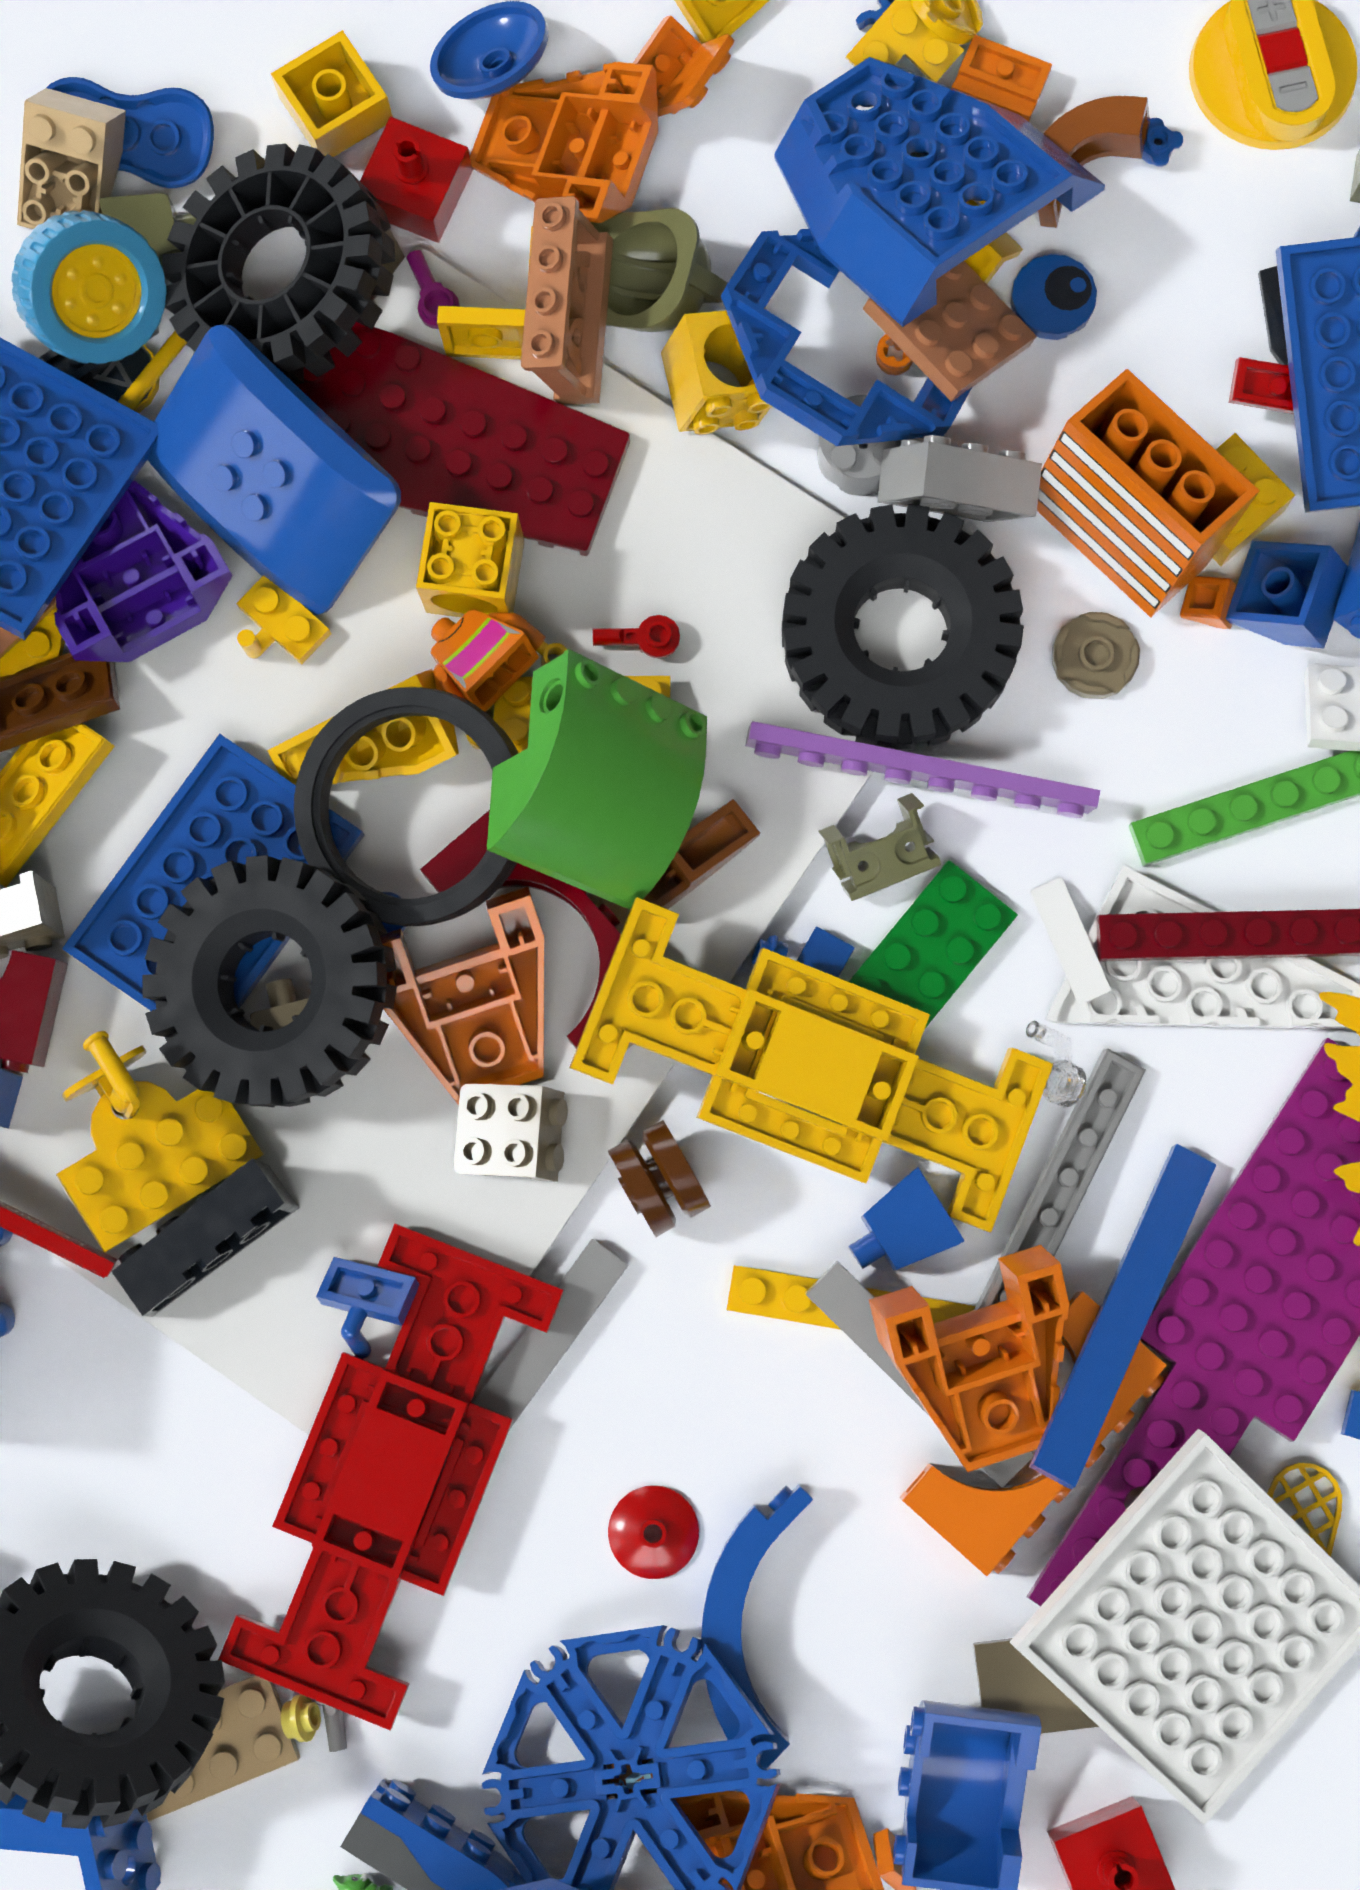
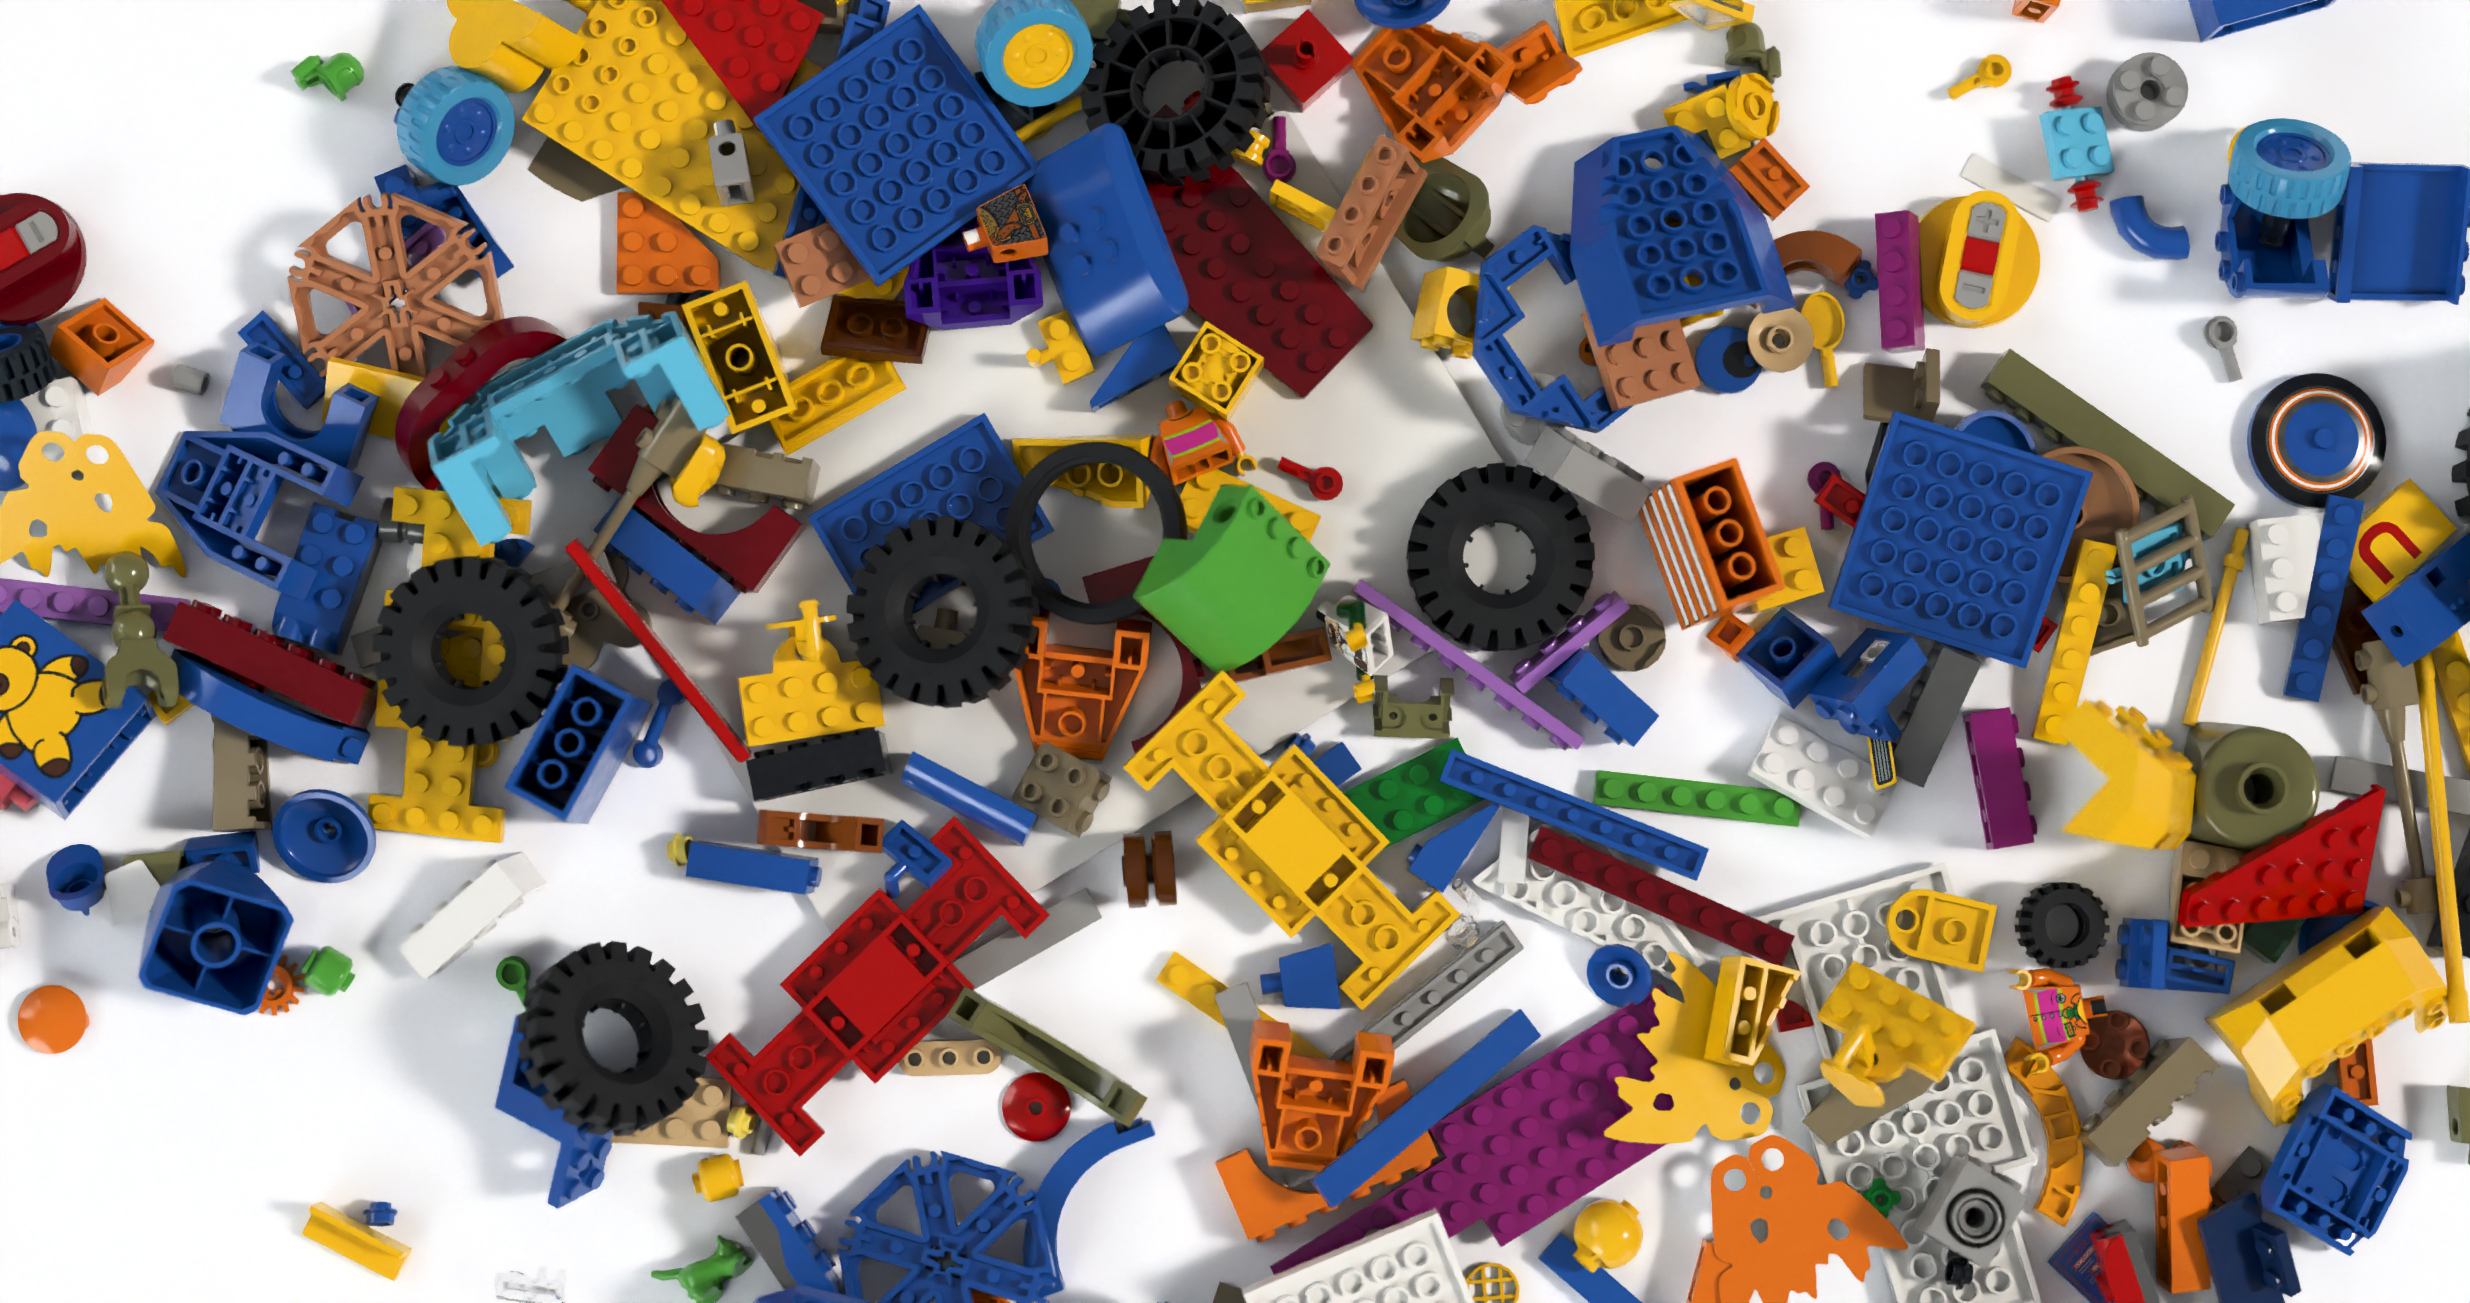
camera: 15 degrees right, 5 degrees up
(83, 1417) = (679, 849): none -> light yellow plate
(151, 505) = (1008, 228): none -> torso
(178, 1398) = (753, 867): none -> blue brick
(238, 1316) = (820, 831): none -> dark orange arch
(302, 1803) = (718, 1177): none -> yellow head
(379, 598) = (1143, 362): none -> blue slope
(398, 305) = (1253, 155): none -> yellow wheel
(402, 1194) = (968, 799): none -> blue brick
(542, 1515) = (966, 1058): none -> tan plate
(638, 1461) = (1048, 1055): none -> olive arch
(781, 788) = (1359, 635): none -> torso
(999, 1003) = (1444, 853): none -> blue slope
(1033, 672) = (1560, 648): none -> medium lavender plate
(1091, 732) = (1603, 698): none -> blue wedge
(1103, 228) = (1795, 336): none -> tan dish
(1130, 884) = (1573, 814): none -> blue plate
(1144, 214) = (1828, 327): none -> yellow piece
(1205, 120) = (1900, 281): none -> magenta brick
(1219, 382) = (1816, 478): none -> magenta plate
(1251, 243) = (1902, 389): none -> dark tan bracket
(1274, 1066) = (1611, 983): none -> blue dish

